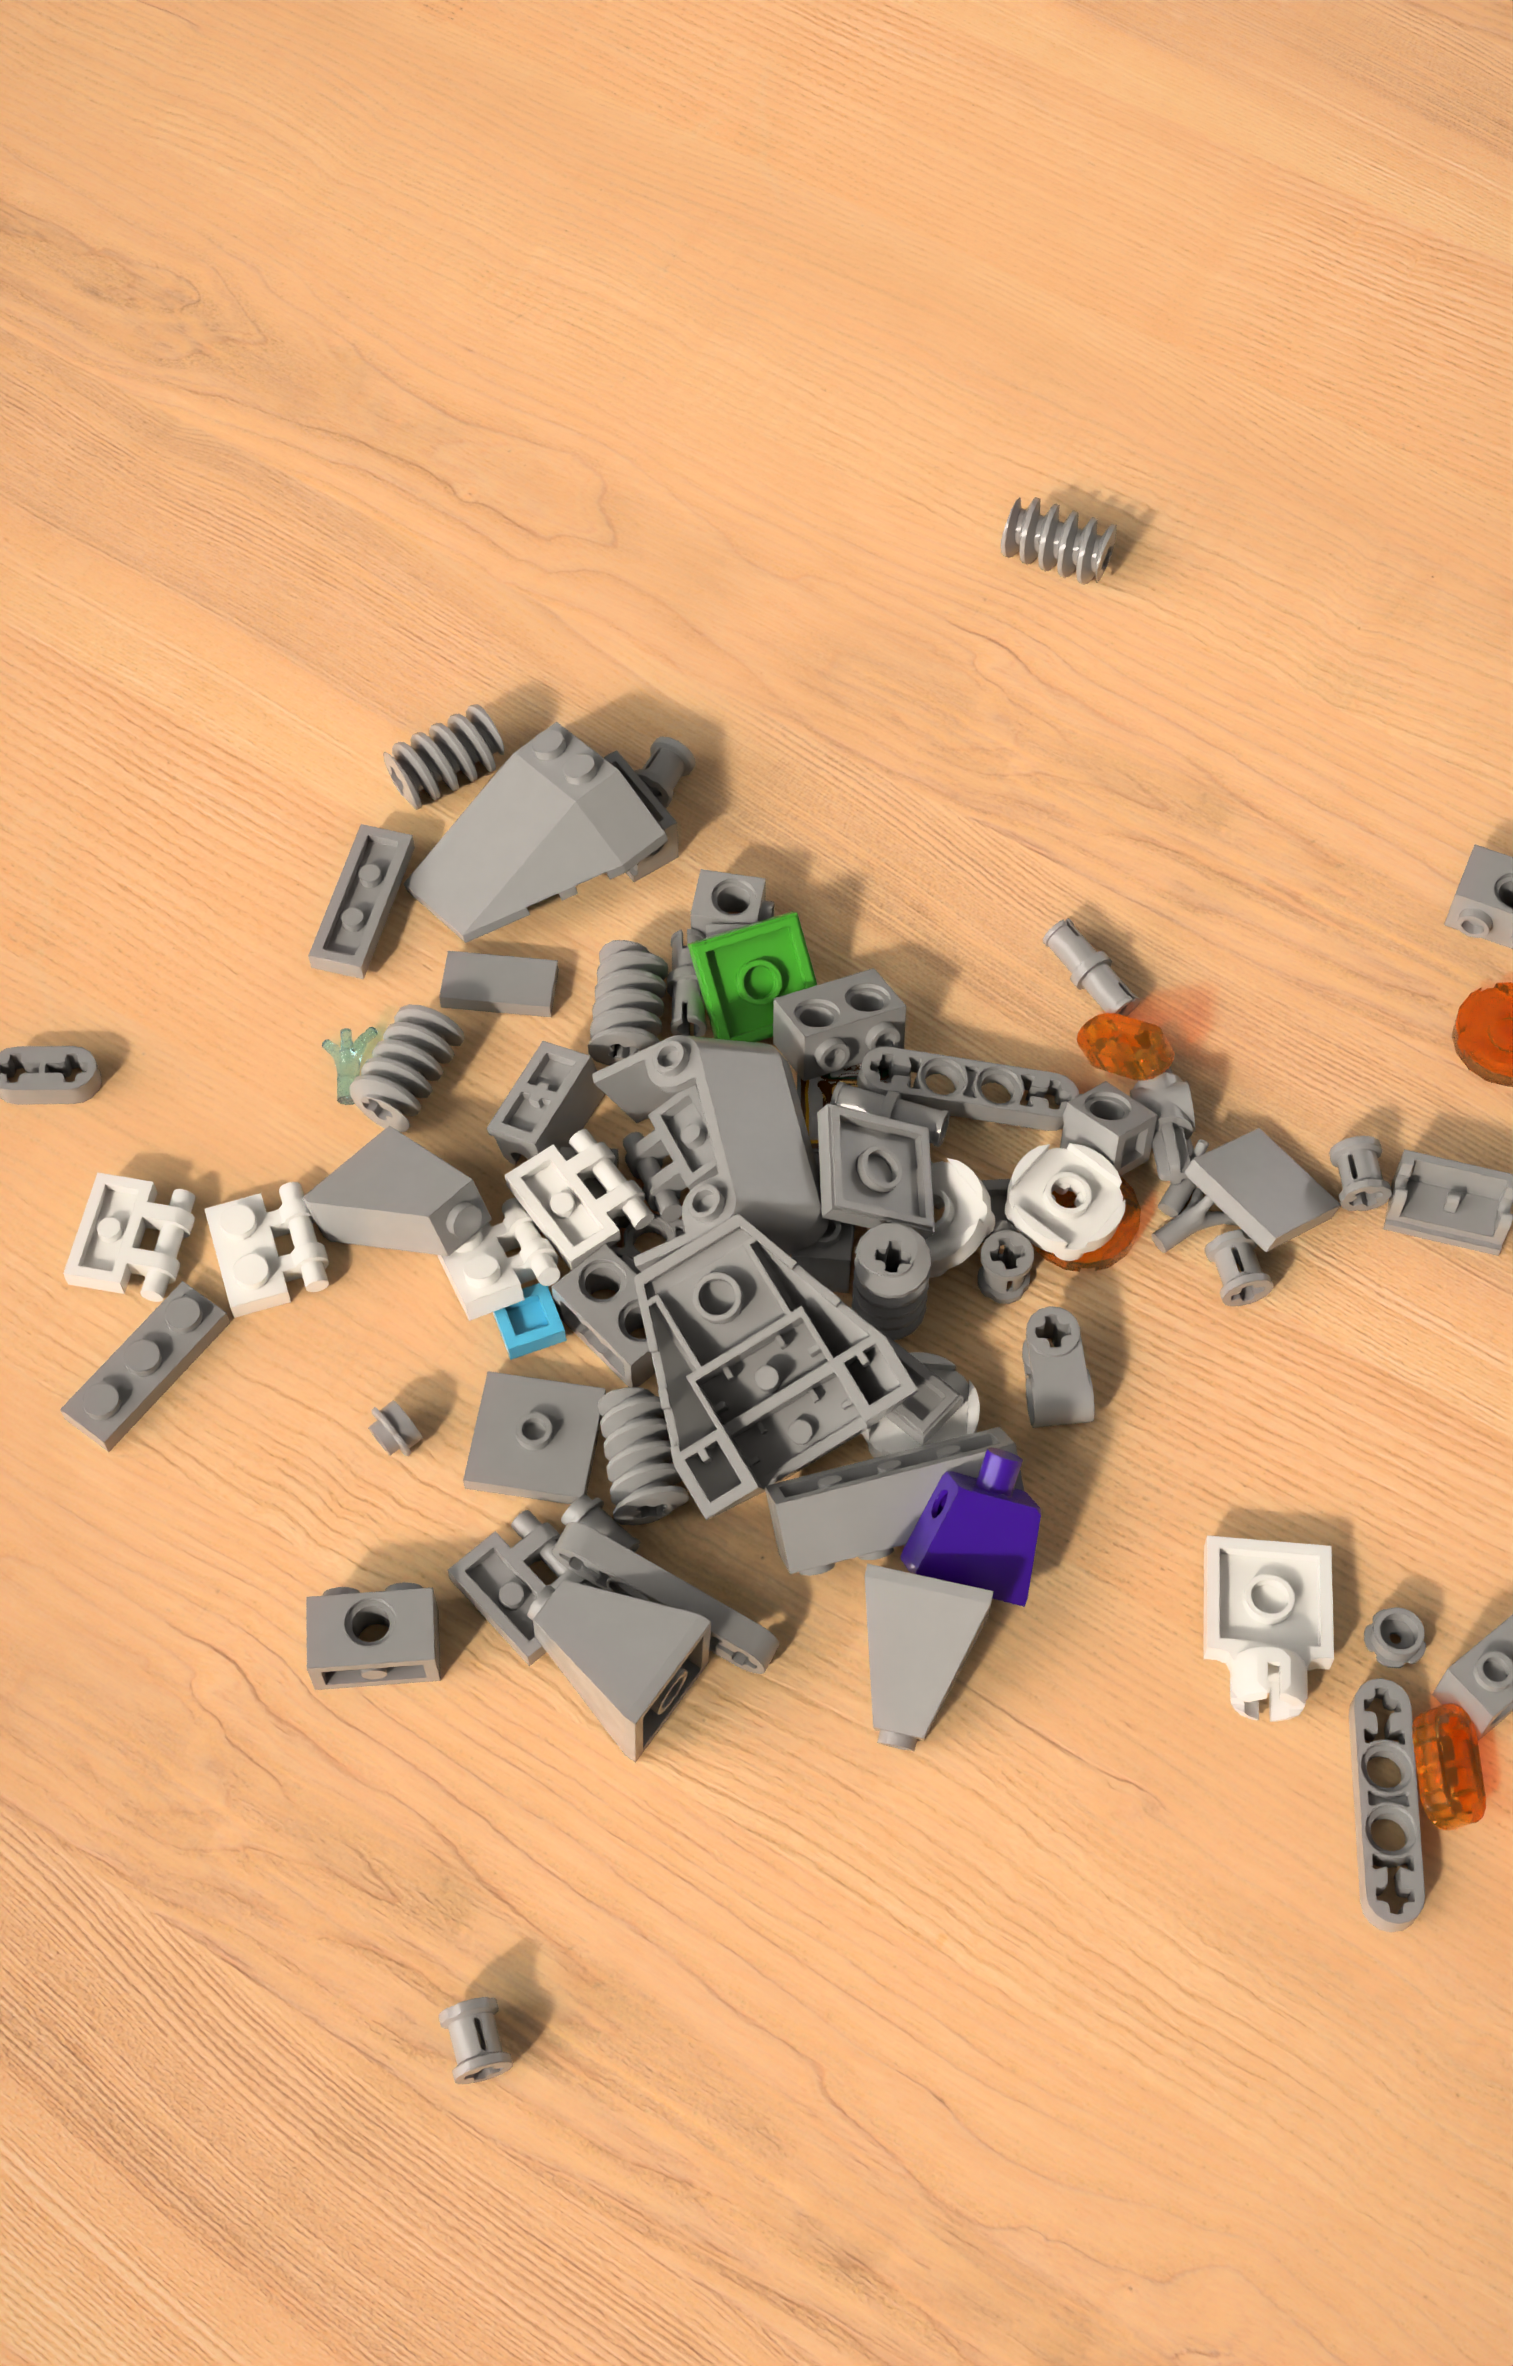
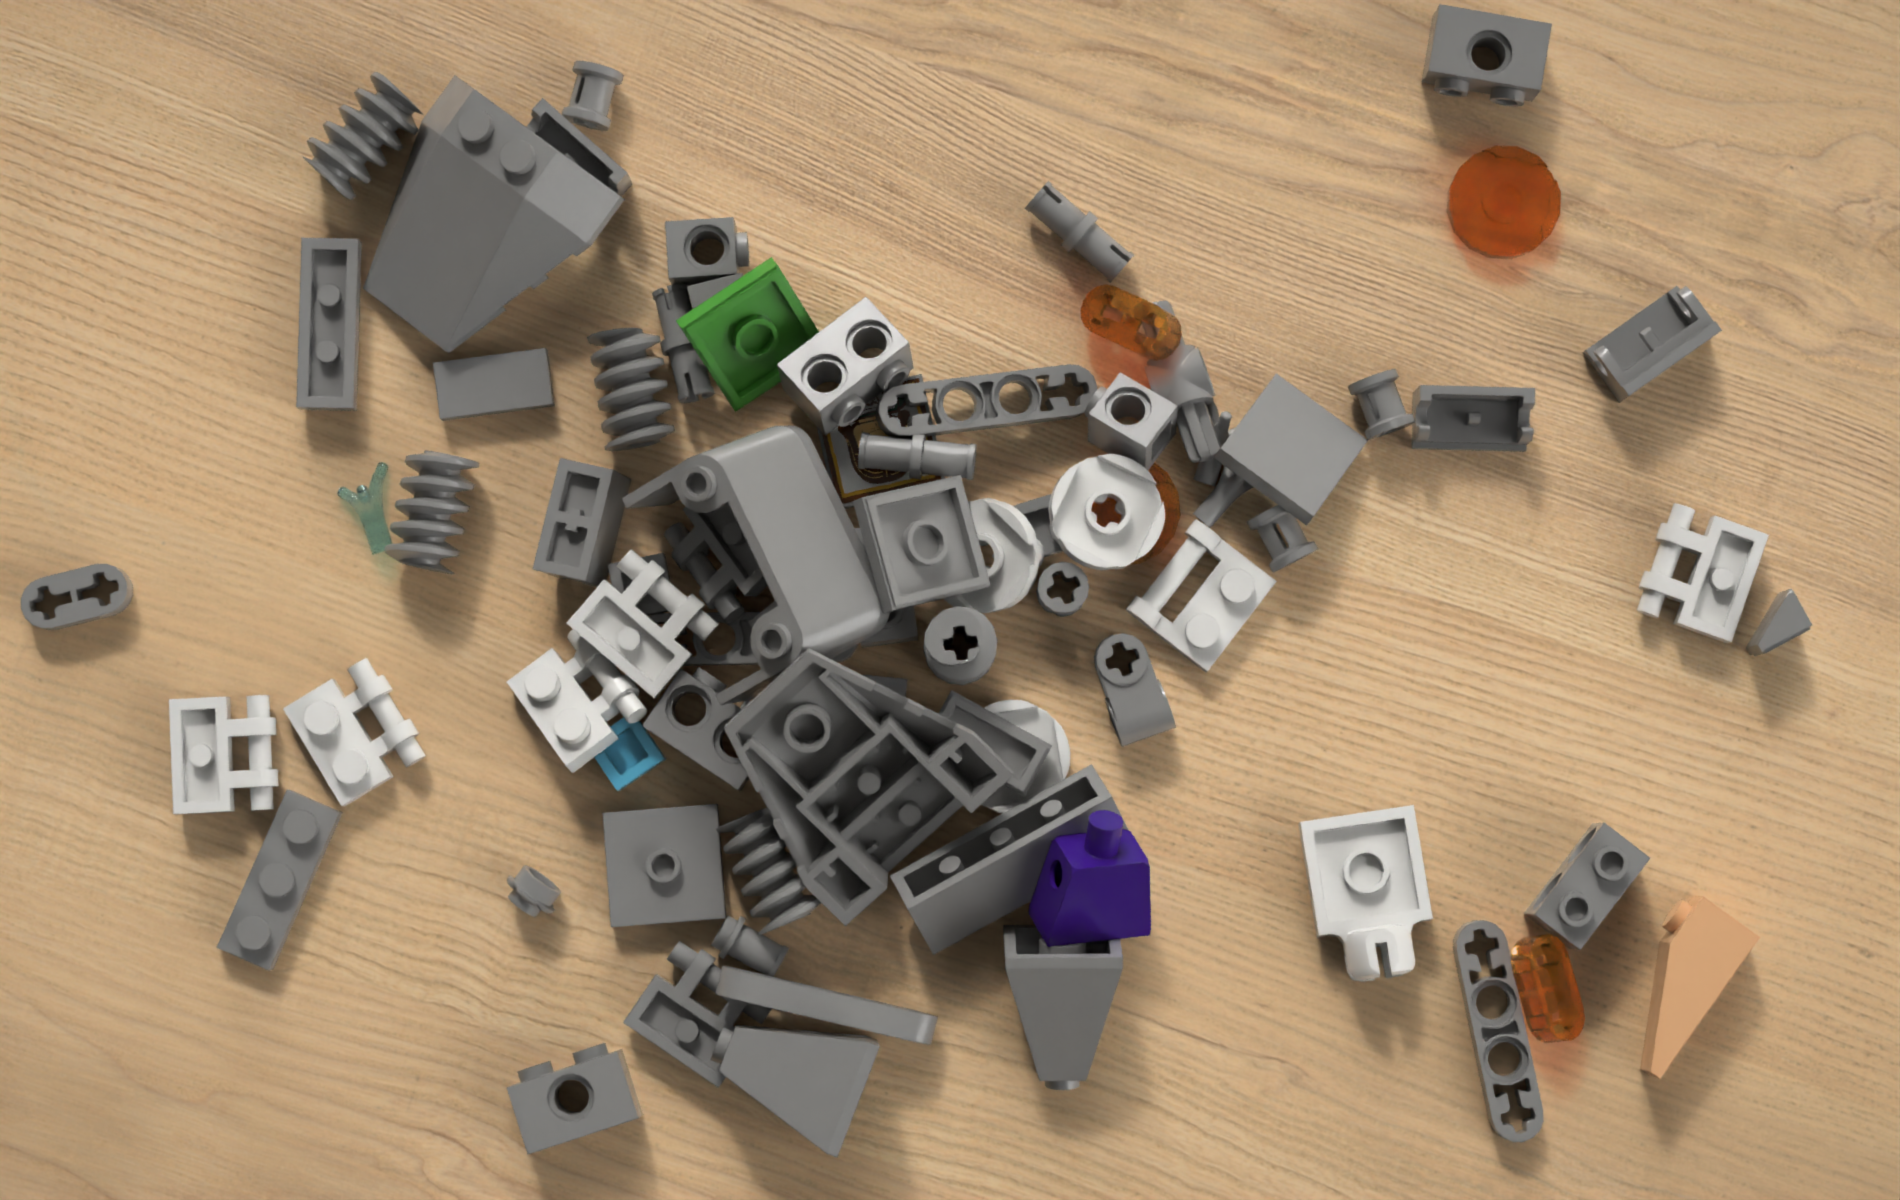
camera: 15 degrees left, 25 degrees up
(398, 1199) = (469, 664): light grey slope -> none
(1157, 1324) = (1215, 609): none -> white plate
(1398, 1622) = (1499, 875): light grey plate -> none

